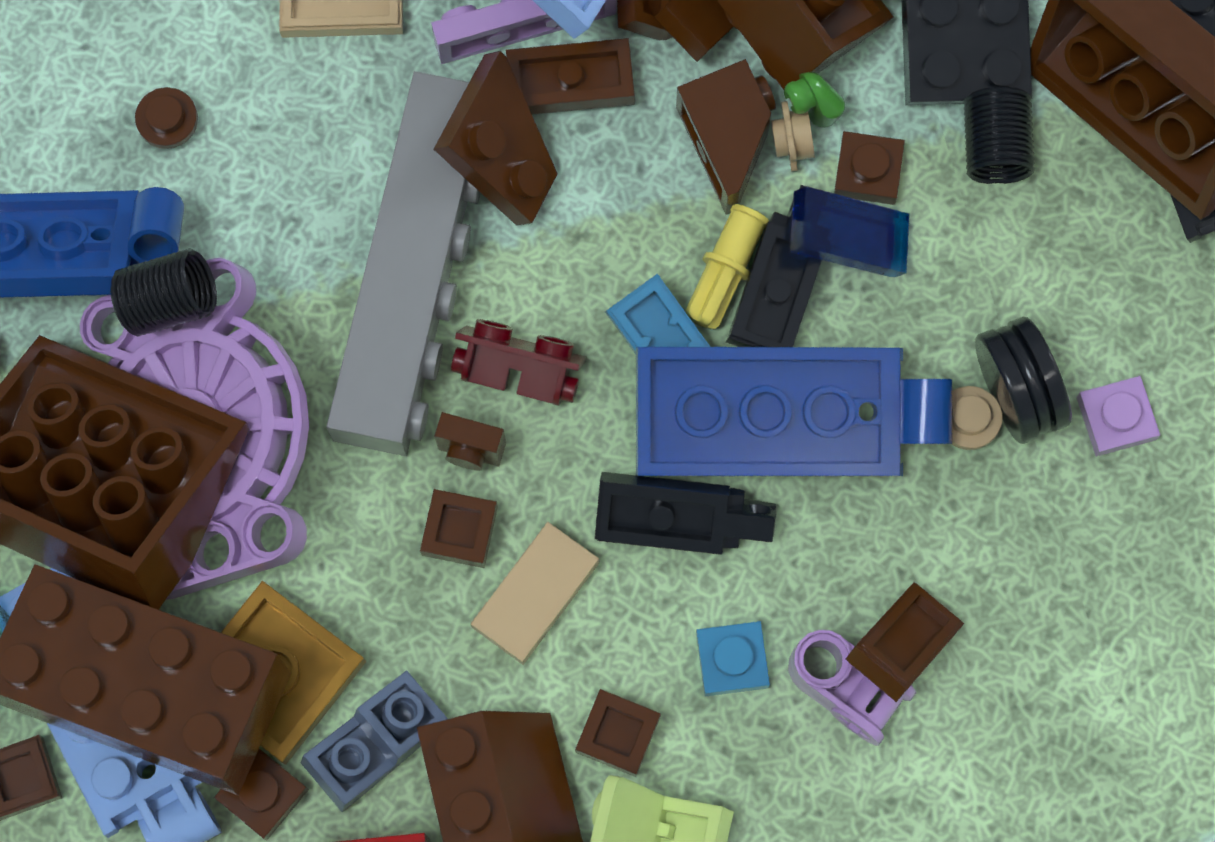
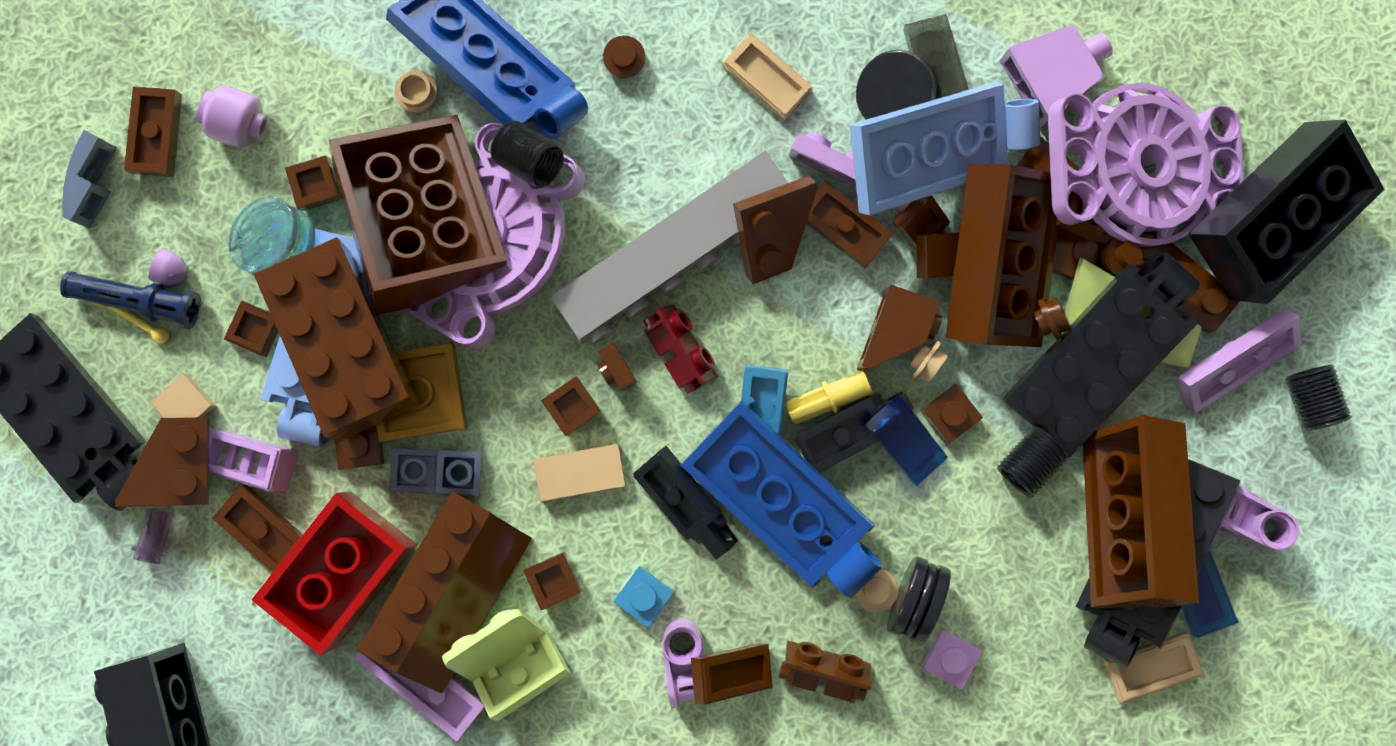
camera: 45 degrees right, 10 degrees up
(816, 97) = (957, 355): bright green arm -> none
(979, 559) = (845, 674): none -> reddish brown hinge

